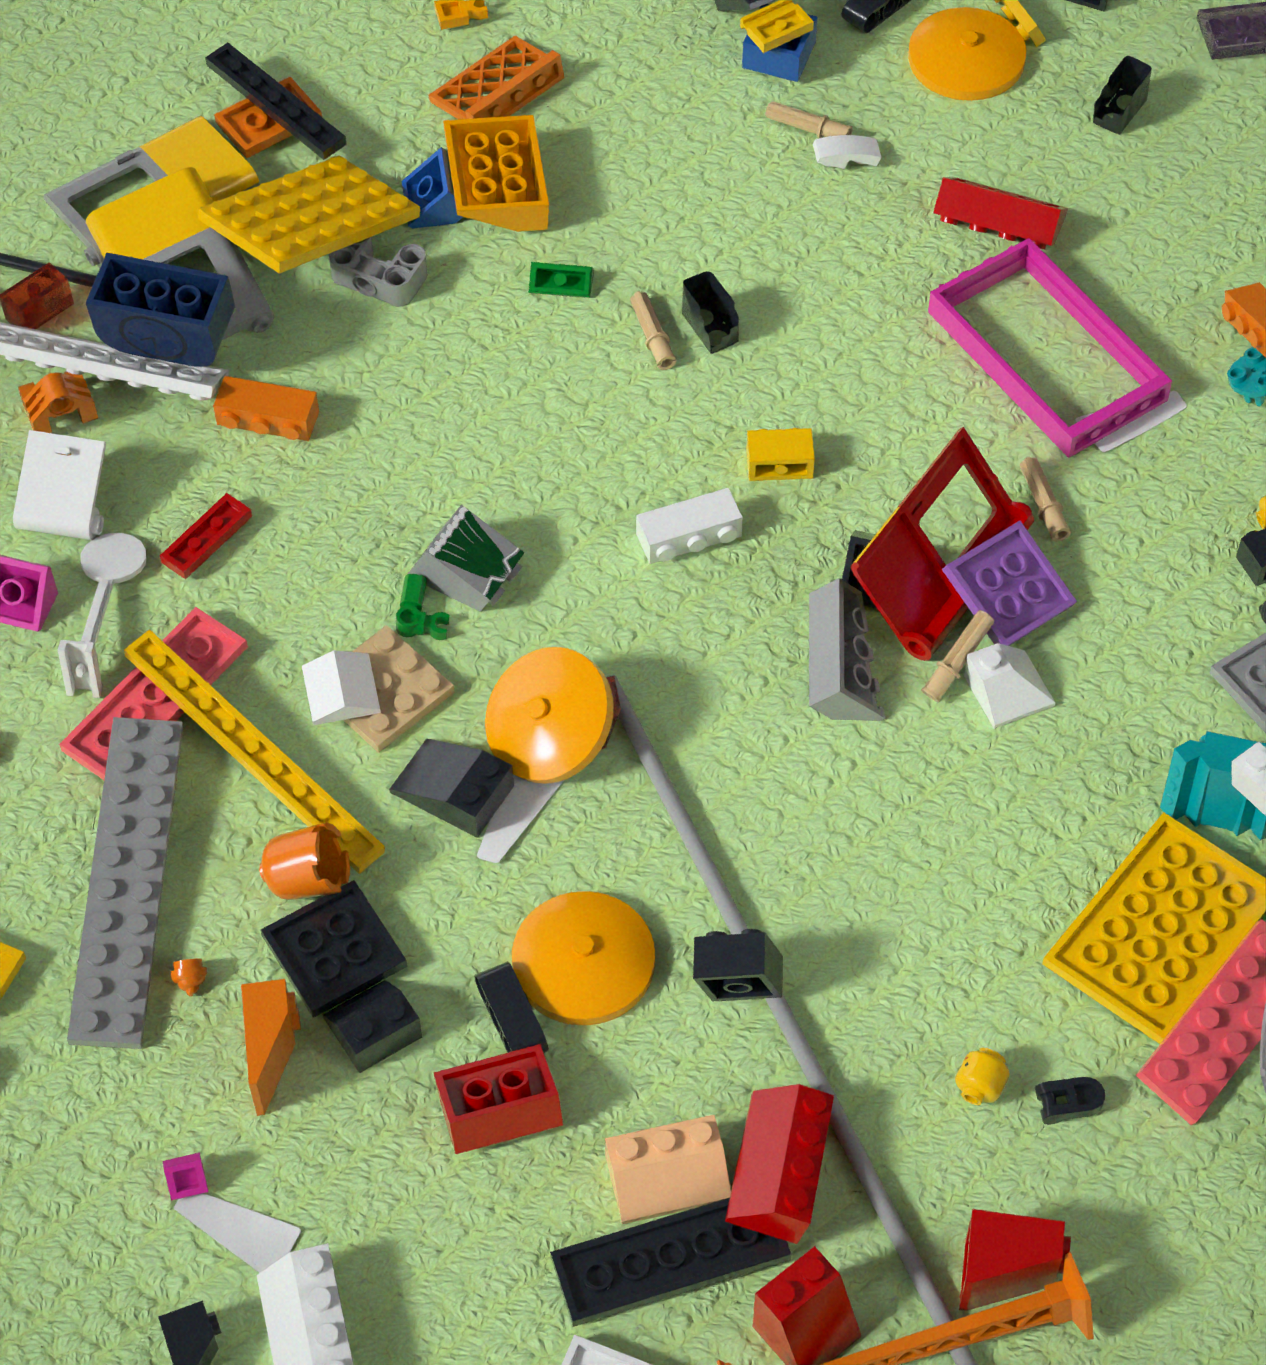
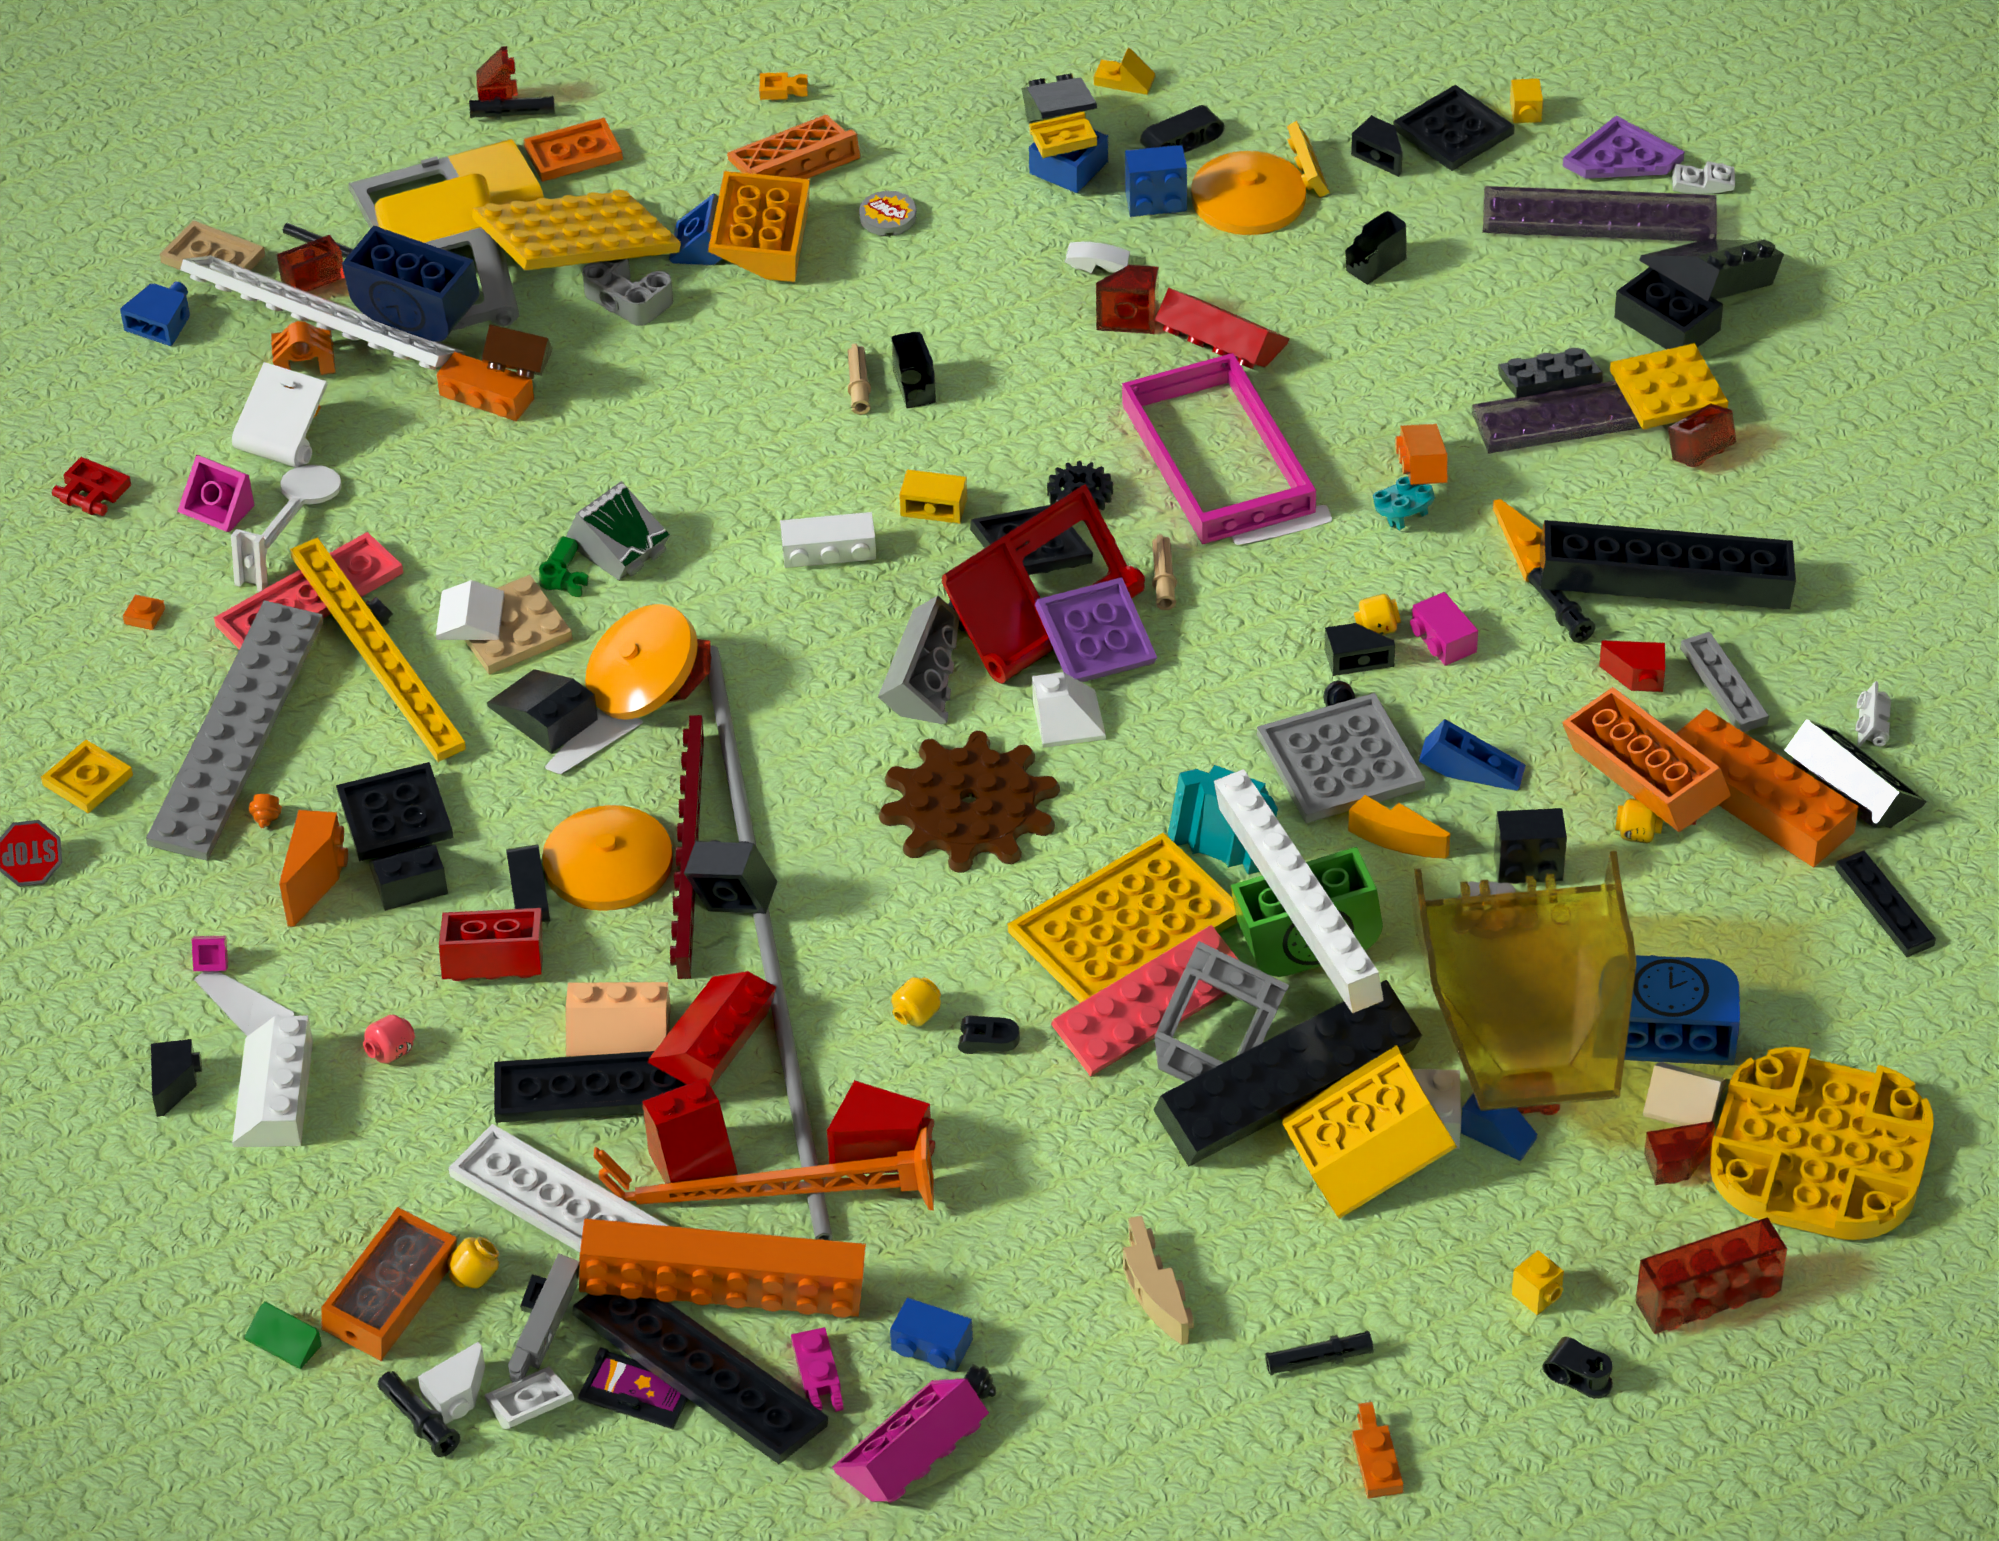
camera: 15 degrees right, 10 degrees down
(164, 54) = (495, 77): none -> clear red slope
(179, 81) = (514, 106): none -> black pin
(206, 536) = (396, 479): red plate -> none
(238, 700) = (380, 611): none -> black plate
(276, 101) = (581, 134): black plate -> none
(294, 368) = (516, 351): none -> reddish brown slope
(305, 863) = (390, 738): orange cylinder -> none
(421, 1246) = (388, 1038): none -> coral head
(561, 279) = (791, 324): green slope -> none
(615, 135) = (887, 213): none -> tile
(672, 940) = (688, 834): none -> dark red plate
(818, 125) = (1069, 226): tan axle -> none
(880, 57) = (1156, 180): none -> blue brick
(886, 480) = (1061, 552): none -> black plate
(904, 196) = (1128, 300): none -> clear red slope
(926, 418) = (1075, 477): none -> black gear
(937, 843) = (962, 829): none -> reddish brown plate
(957, 656) = (1022, 682): tan axle -> none

